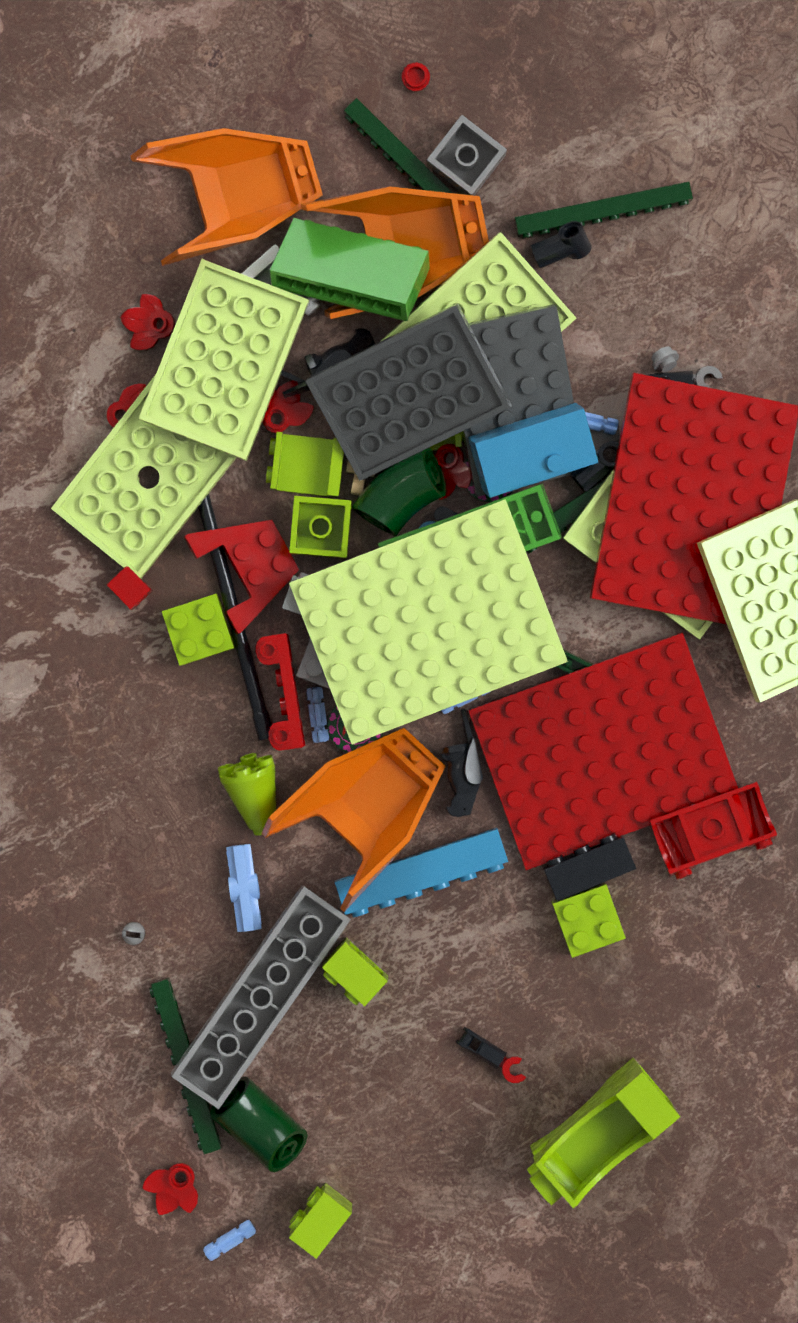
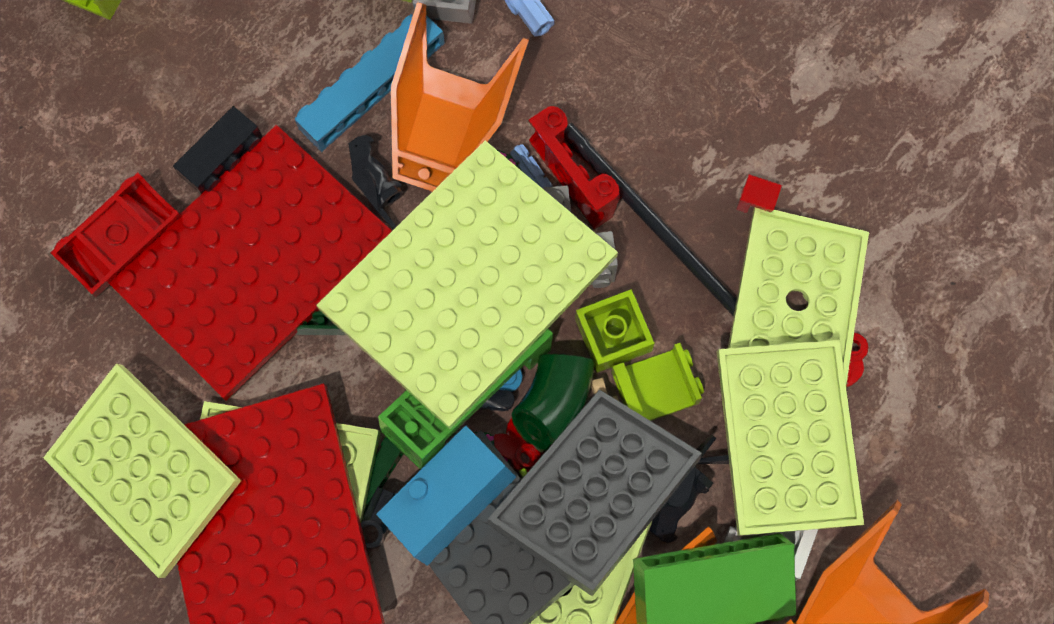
camera: 155 degrees right, 15 degrees down
(143, 322) = (880, 445): red plate -> none
(198, 629) = (677, 188): lime brick -> none
(251, 788) = (557, 76): lime cone -> none
(258, 559) = (657, 278): red wing -> none
(290, 408) = (697, 429): red plate -> none
(588, 920) = (196, 103): lime brick -> none
(598, 423) = (398, 562): light blue axle -> none

